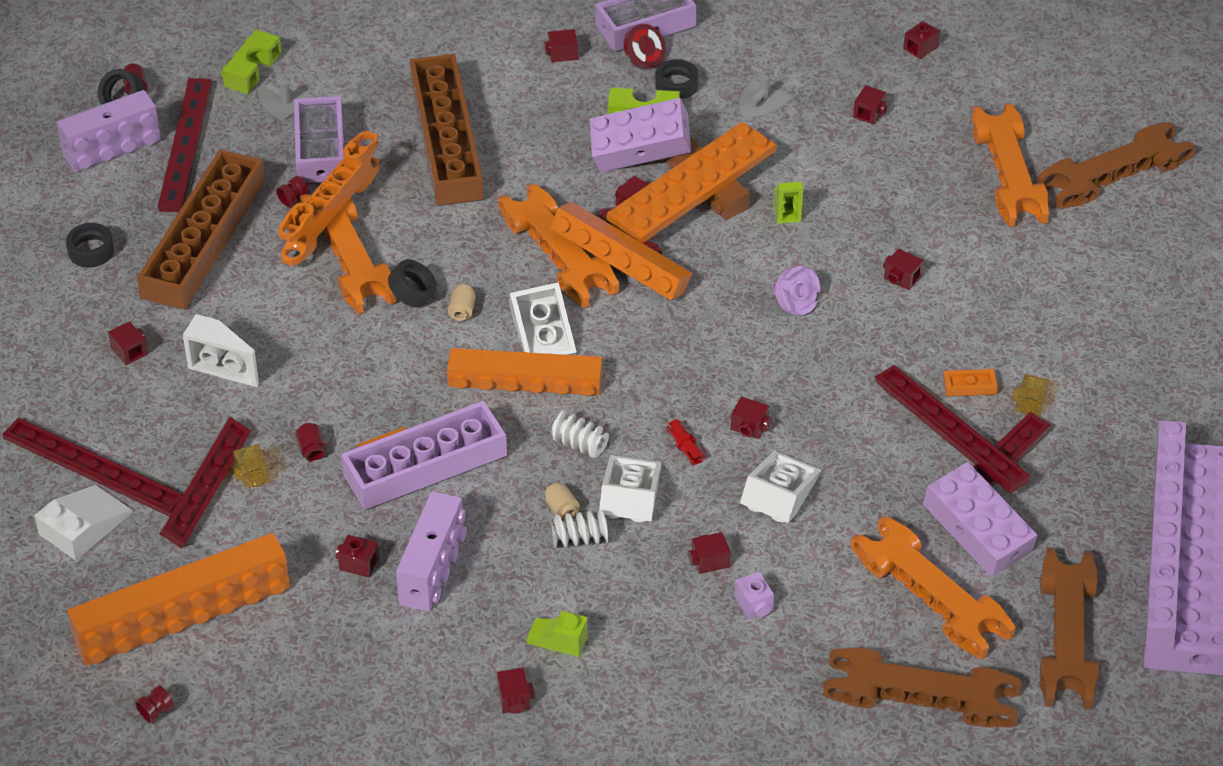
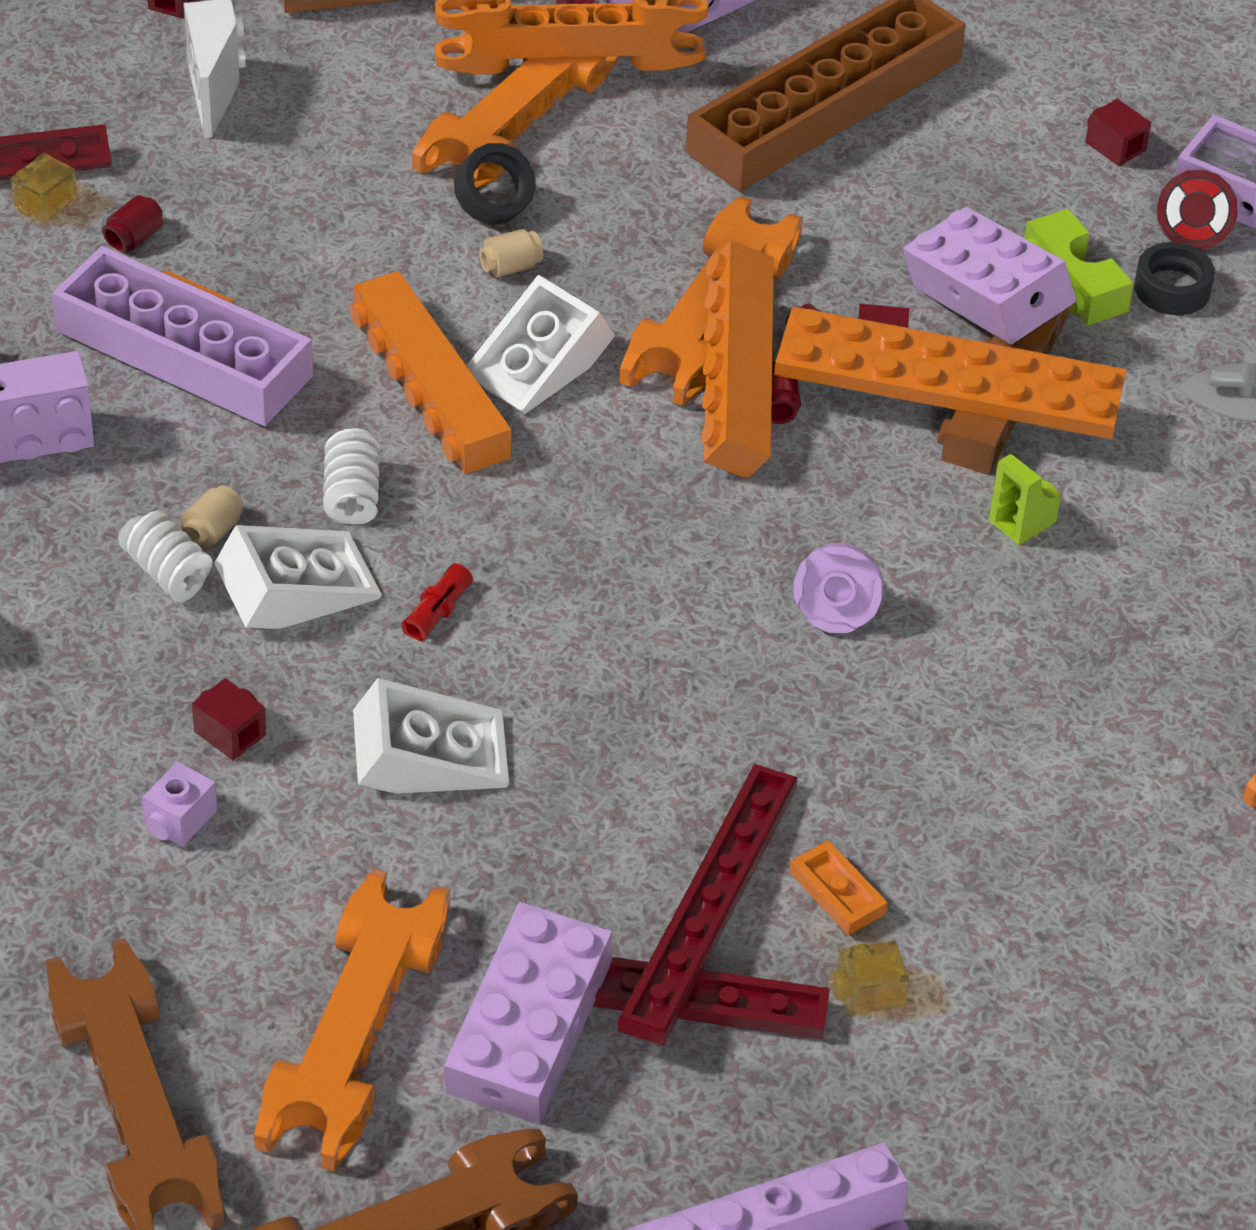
camera: 55 degrees right, 0 degrees up
(750, 418) = (536, 650): dark red brick -> none
(903, 269) = (1010, 701): dark red brick -> none

